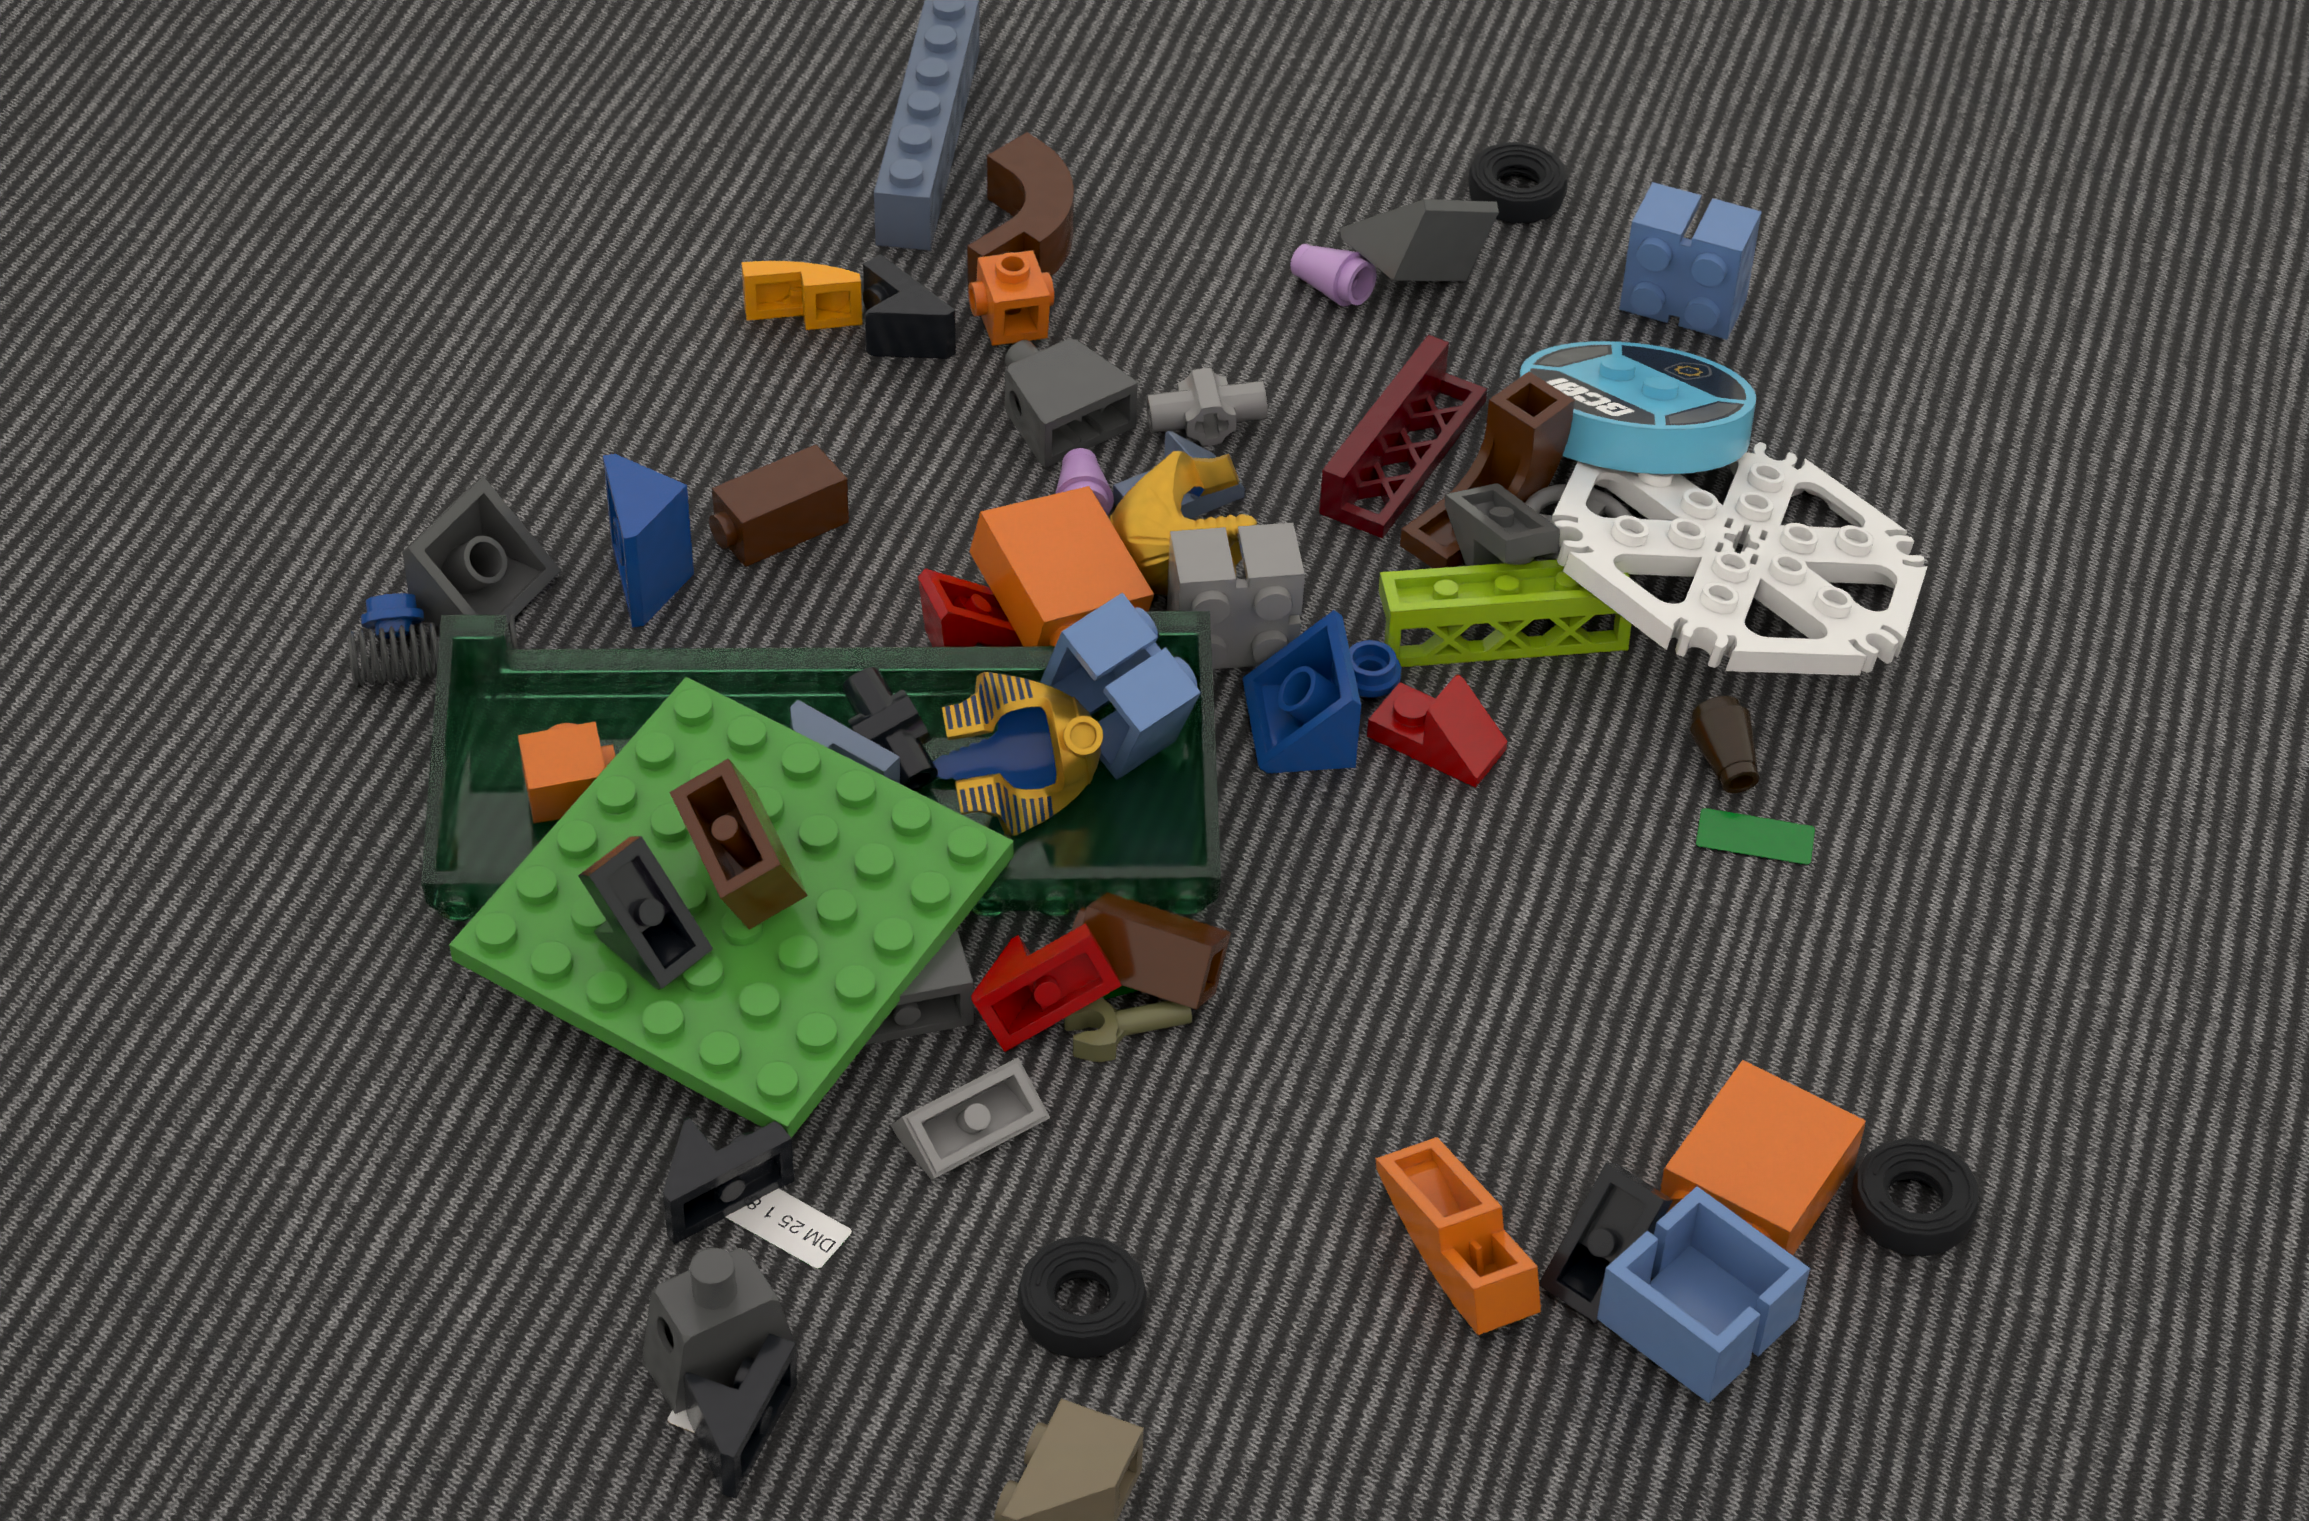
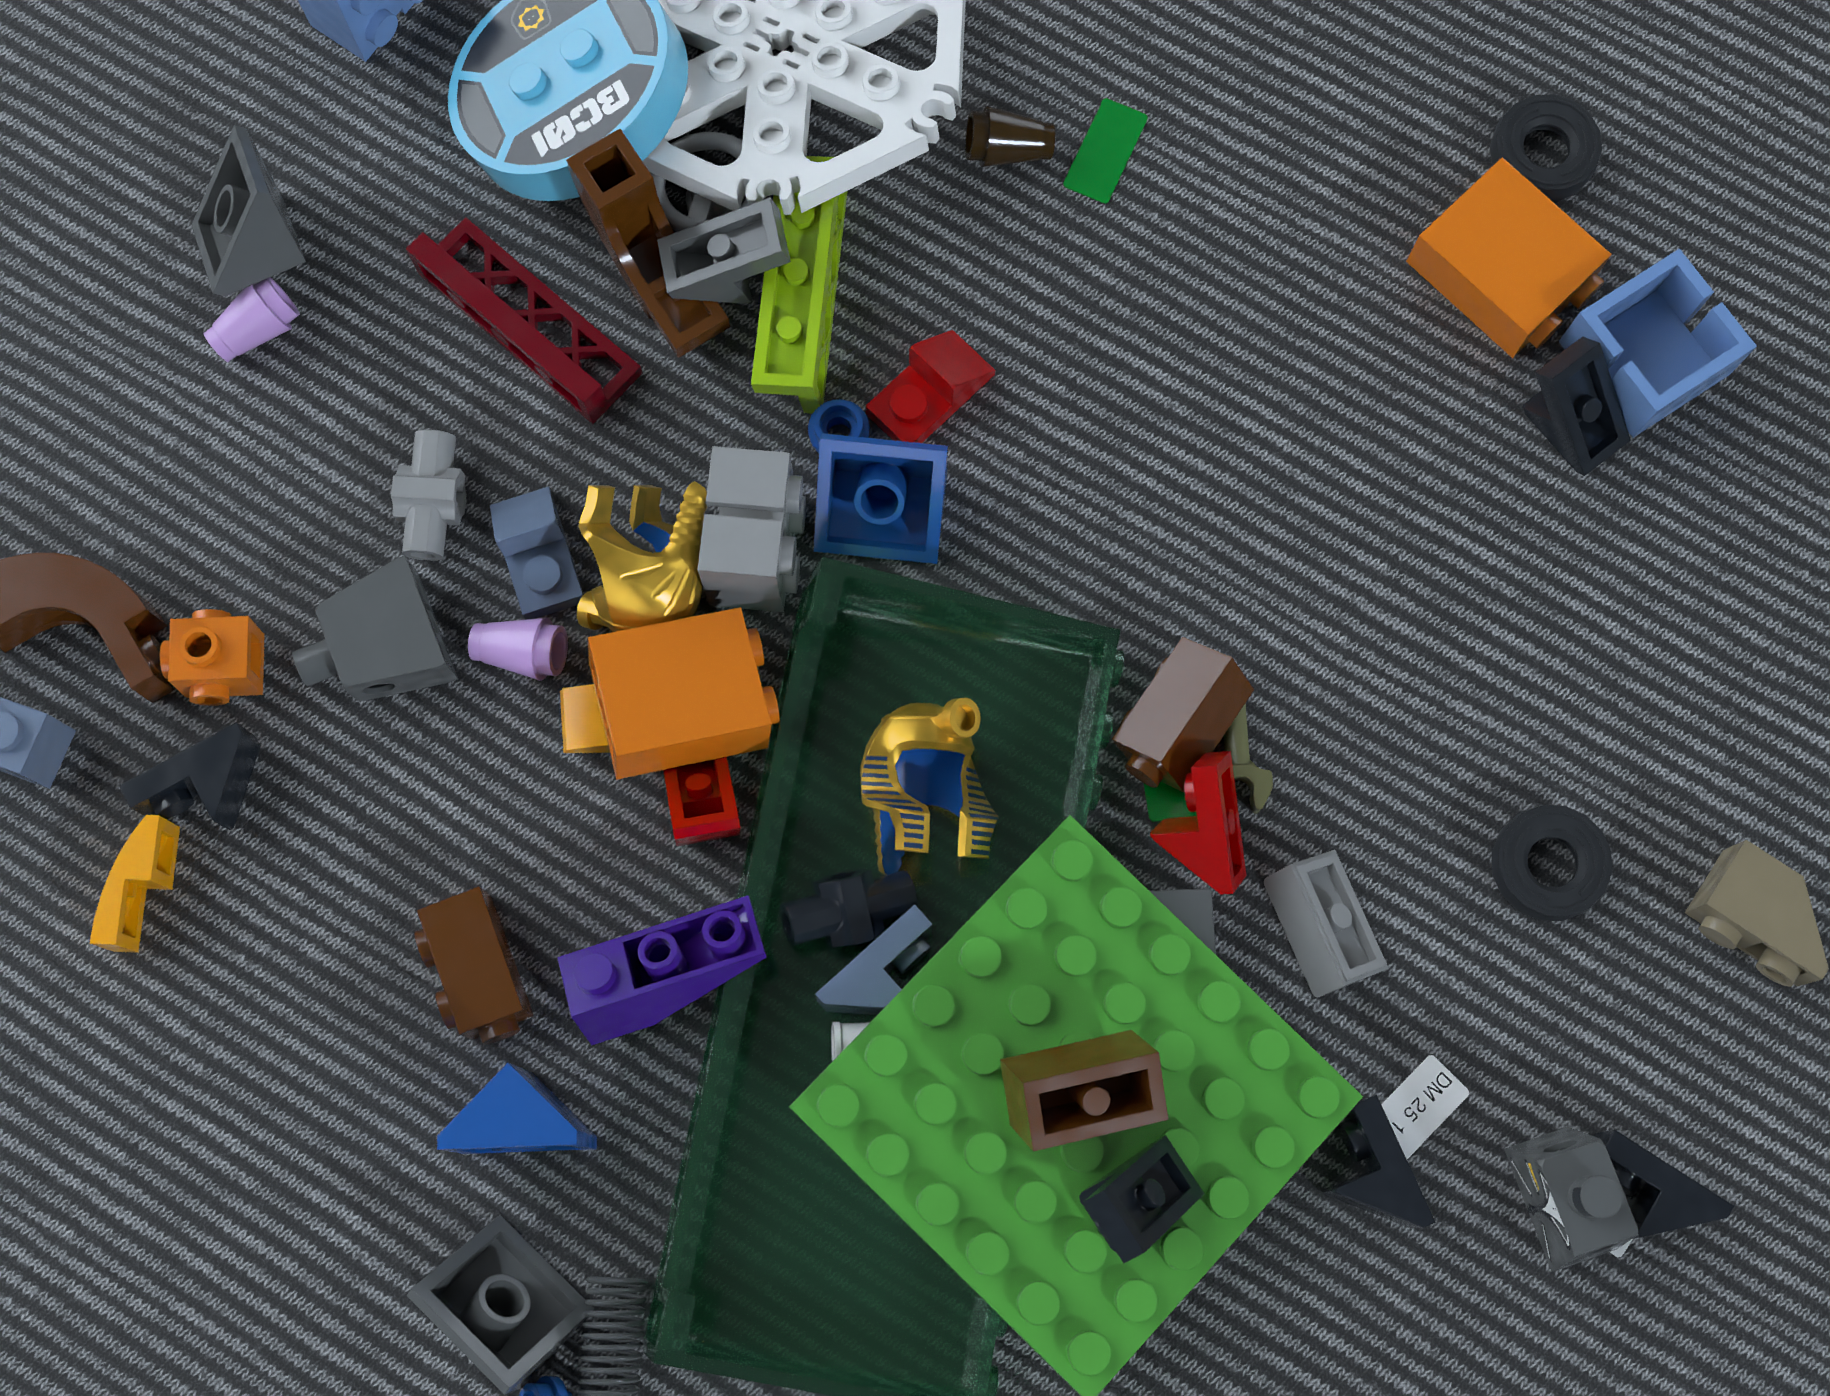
camera: 75 degrees left, 30 degrees up
(561, 766) = (851, 1249): orange brick -> none
(791, 599) = (658, 969): none -> dark purple slope
(1116, 661) = (885, 663): medium blue piece -> none
(1461, 1235) = (1535, 525): orange slope -> none
(1521, 160) = (134, 72): black tyre -> none

